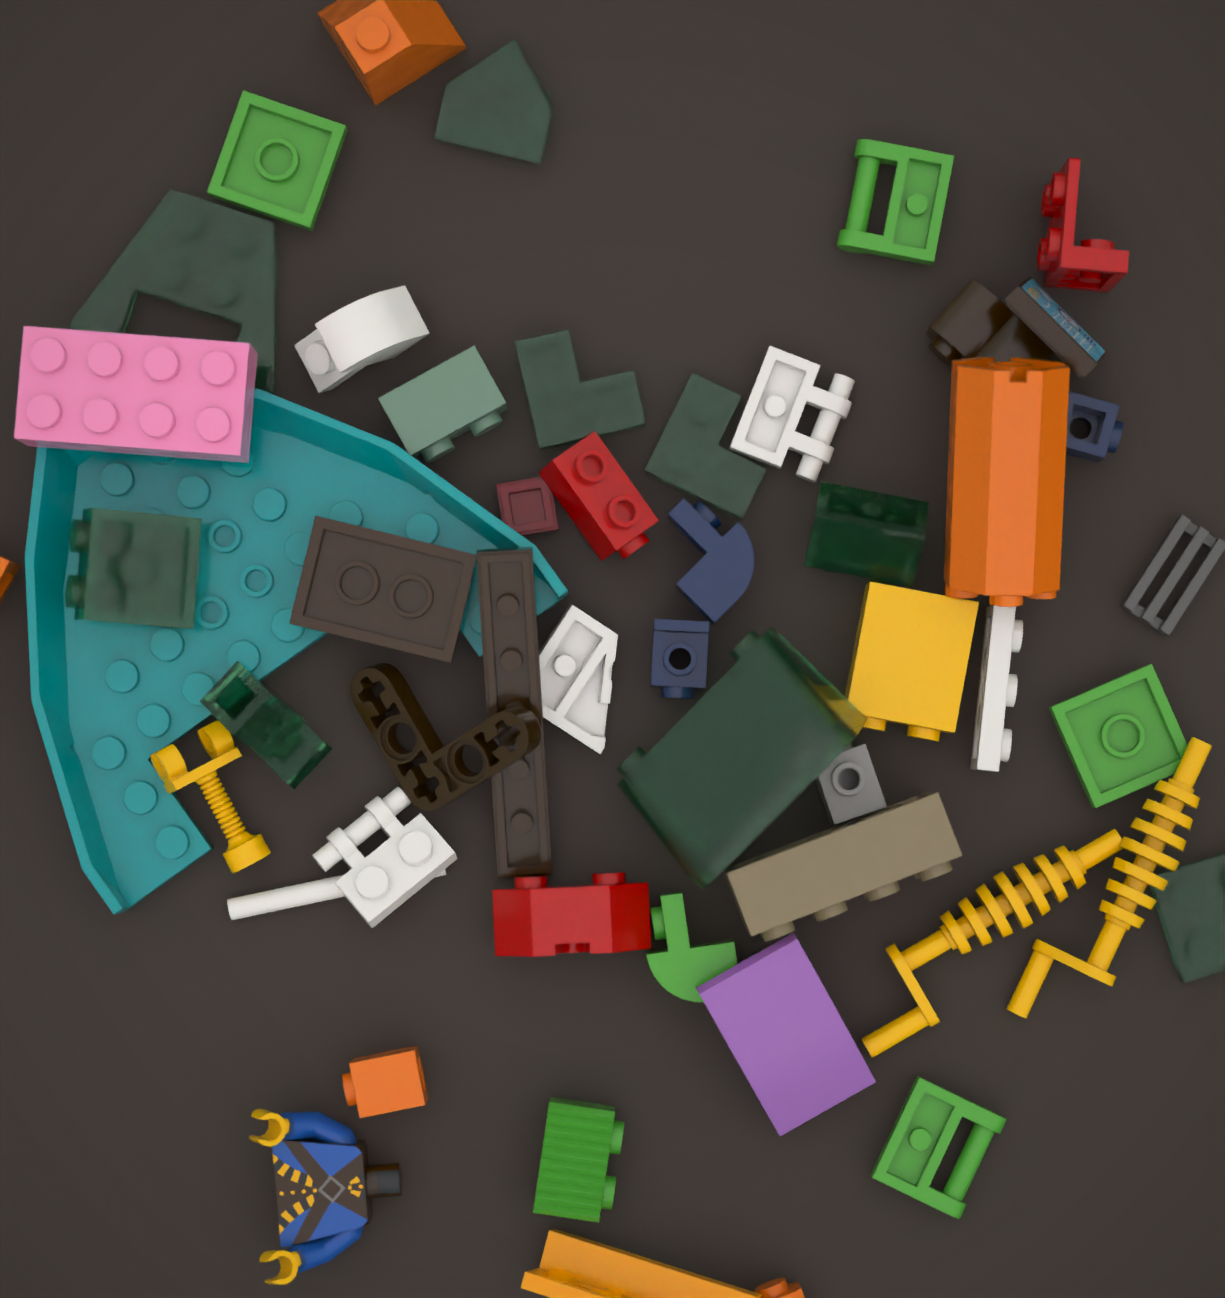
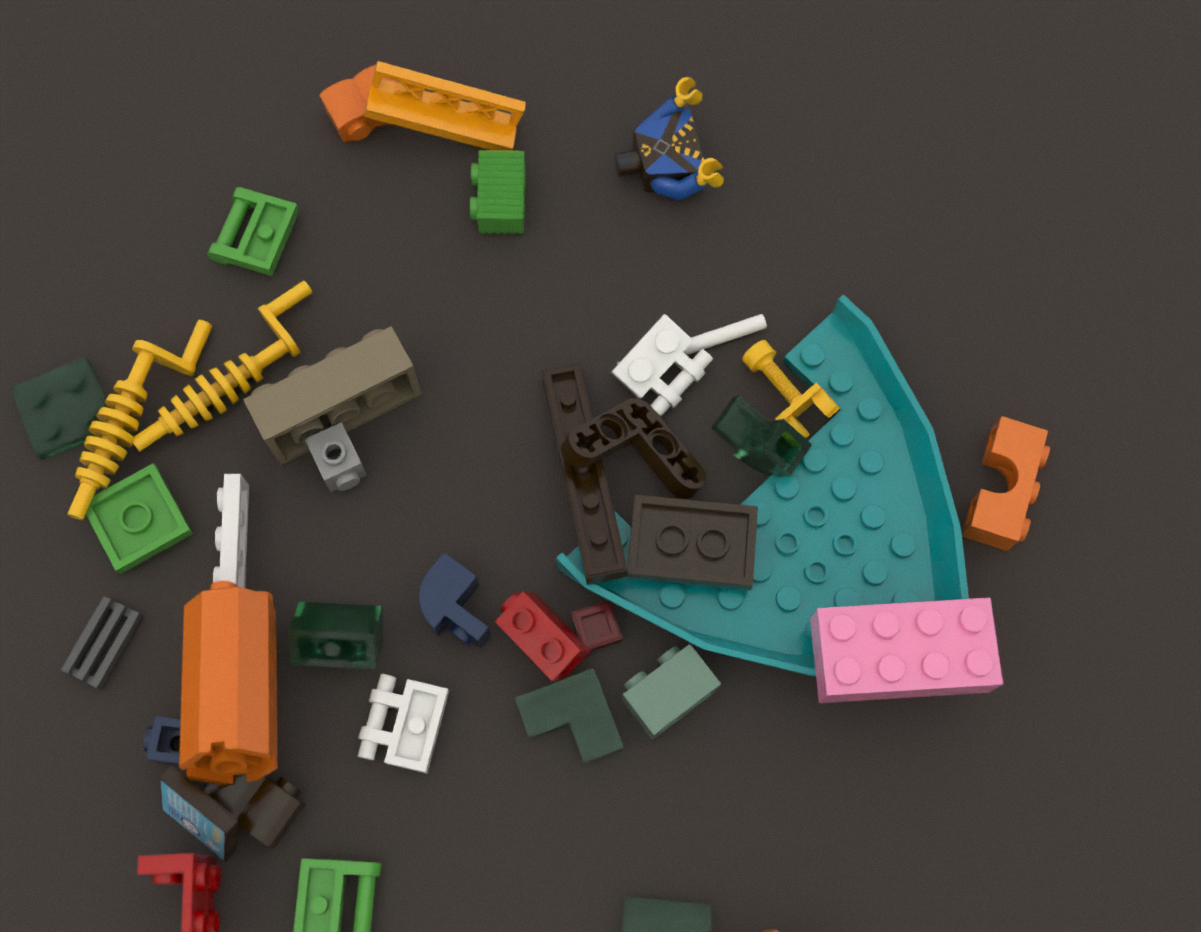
camera: 170 degrees right, 15 degrees down
(134, 568) = (878, 529): clear green plate -> none
(202, 261) = (874, 780): clear green wing -> none
(277, 160) = (832, 868): bright green plate -> none
(361, 335) = (740, 733): white brick -> none
(386, 1082) = (636, 222): orange brick -> none
(571, 919) = (503, 342): red brick -> none
(577, 676) = (541, 507): white wing -> none
(683, 965) = (436, 319): bright green brick -> none
(684, 635) = (473, 543): dark blue brick -> none
(691, 455) = (478, 687): clear green plate -> none
(739, 755) = (409, 454): clear green windscreen -> none
(786, 1034) = (363, 279): medium lavender slope -> none
(910, 659) = (298, 548): yellow brick -> none

